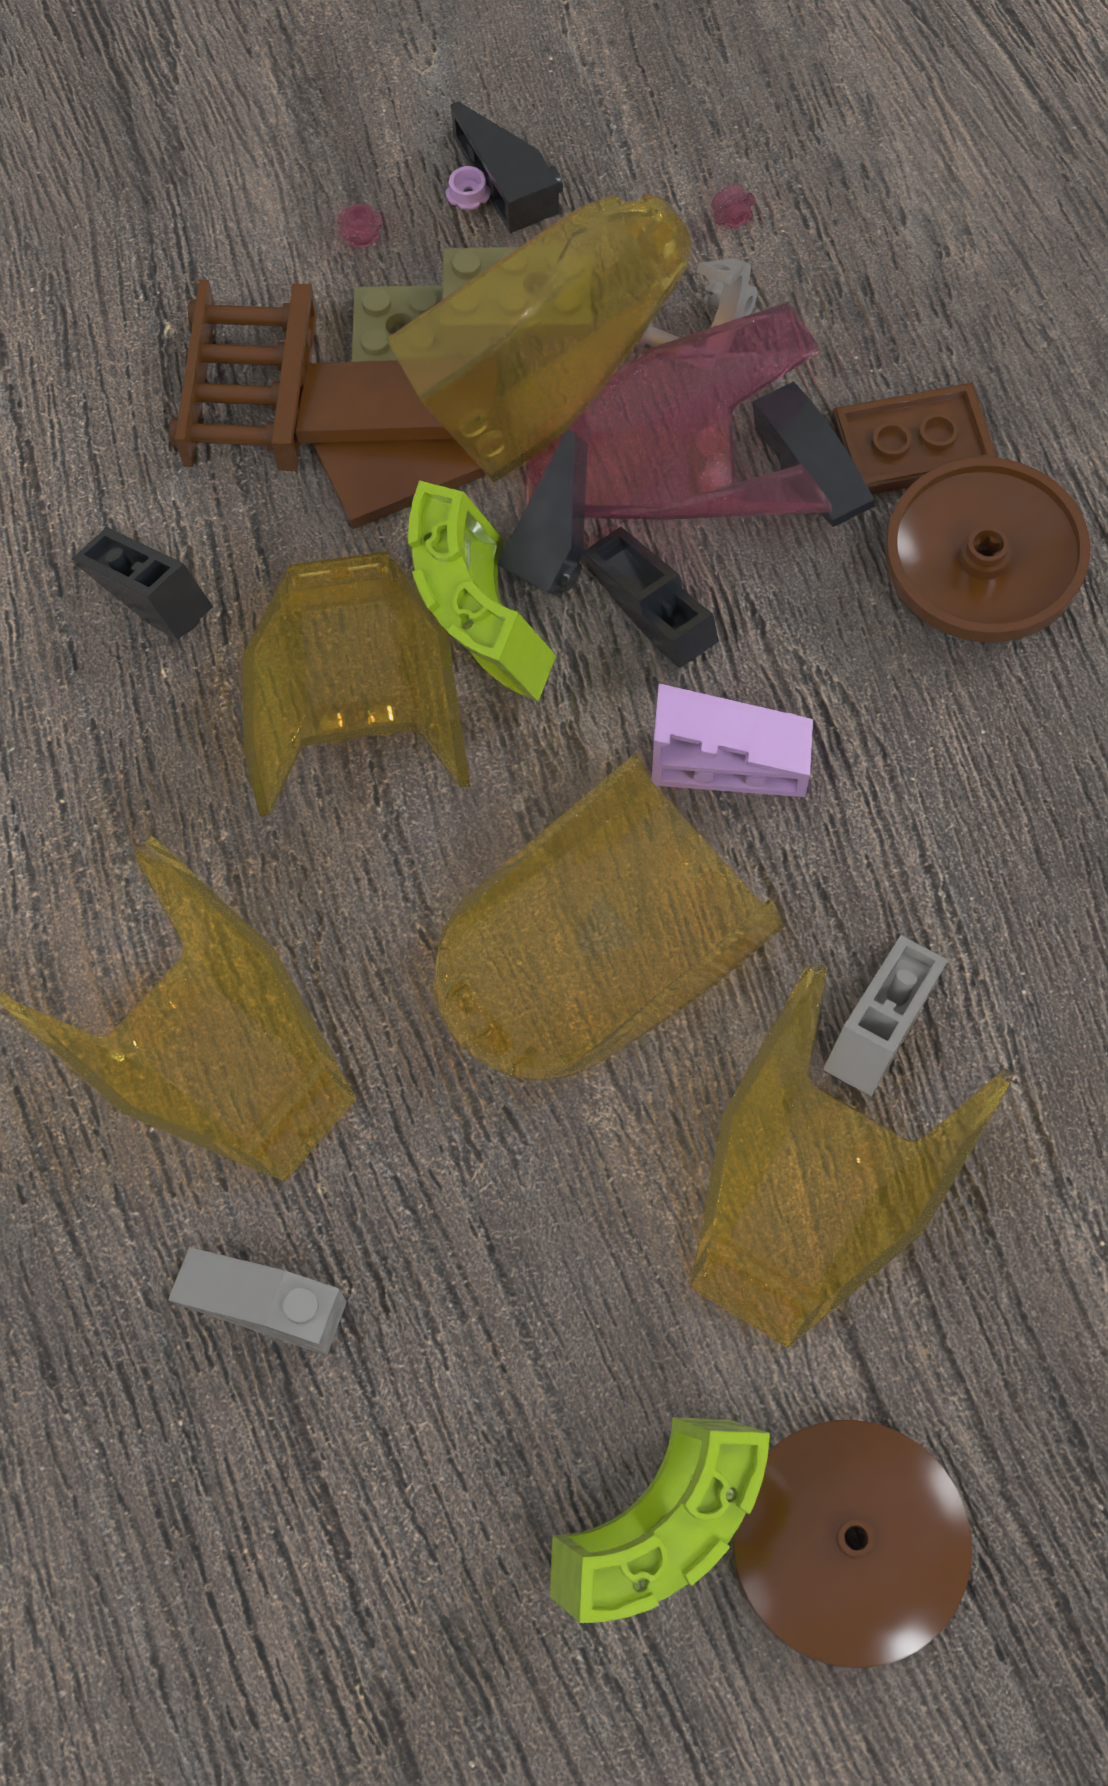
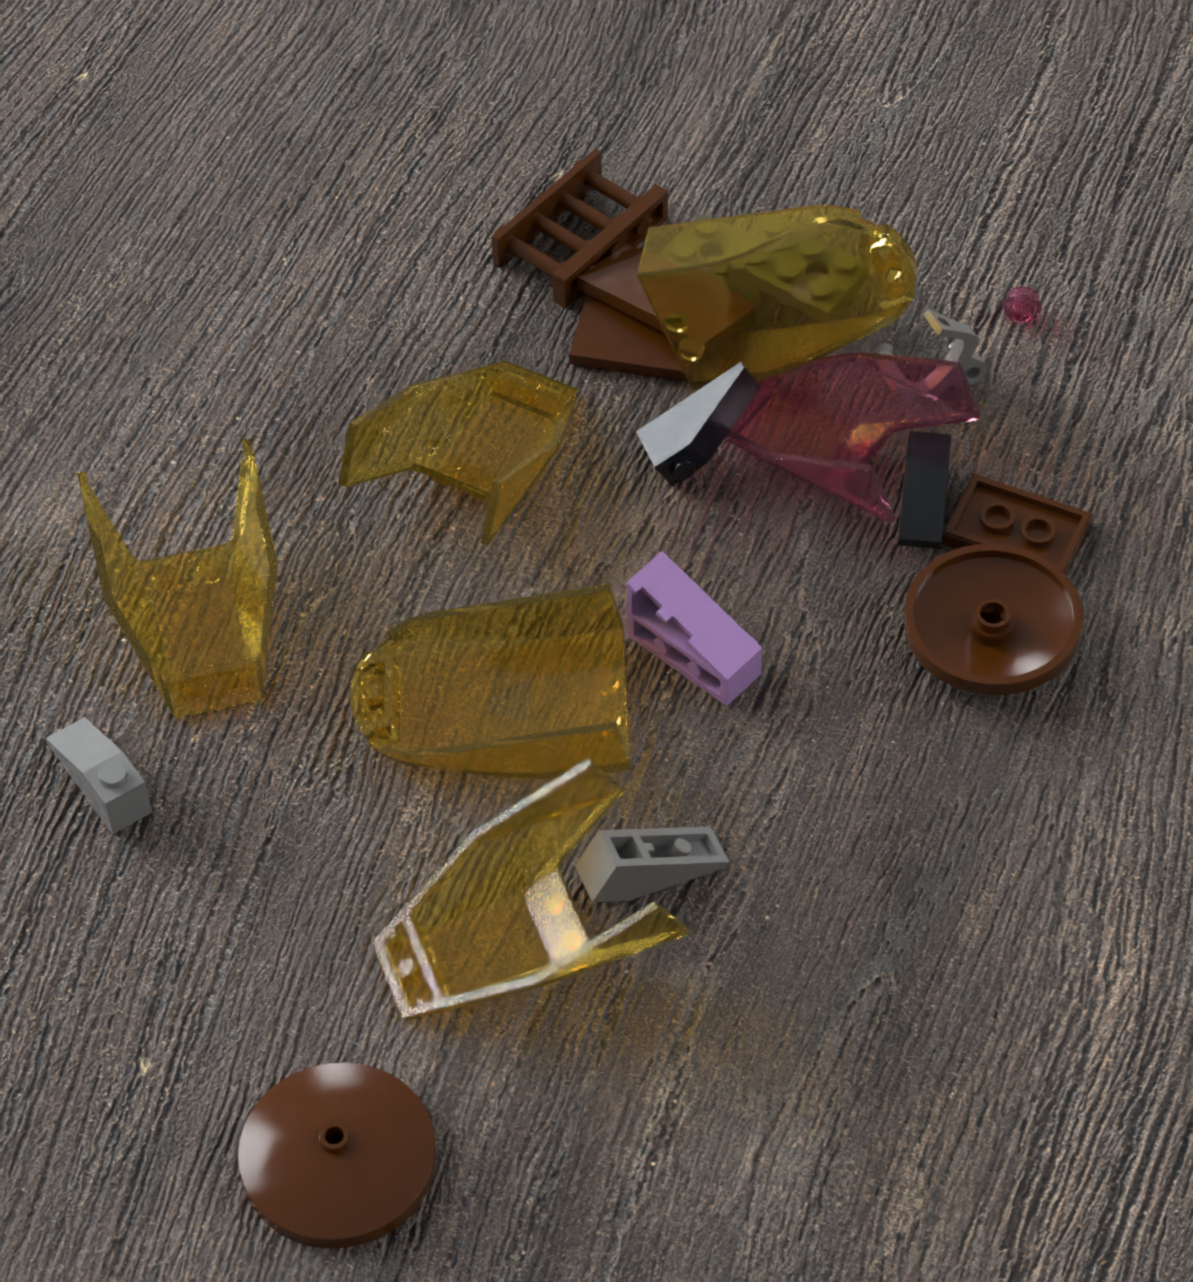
camera: 35 degrees right, 15 degrees down
(145, 581) = (400, 317): black slope -> none
(360, 225) = (744, 177): clear pink plate -> none
(457, 578) = (596, 430): lime window -> none
(467, 188) = (840, 192): lavender plate -> none
(515, 171) = (878, 187): black slope -> none
(652, 596) = (730, 517): black slope -> none
(672, 1528) = (222, 1044): lime window -> none

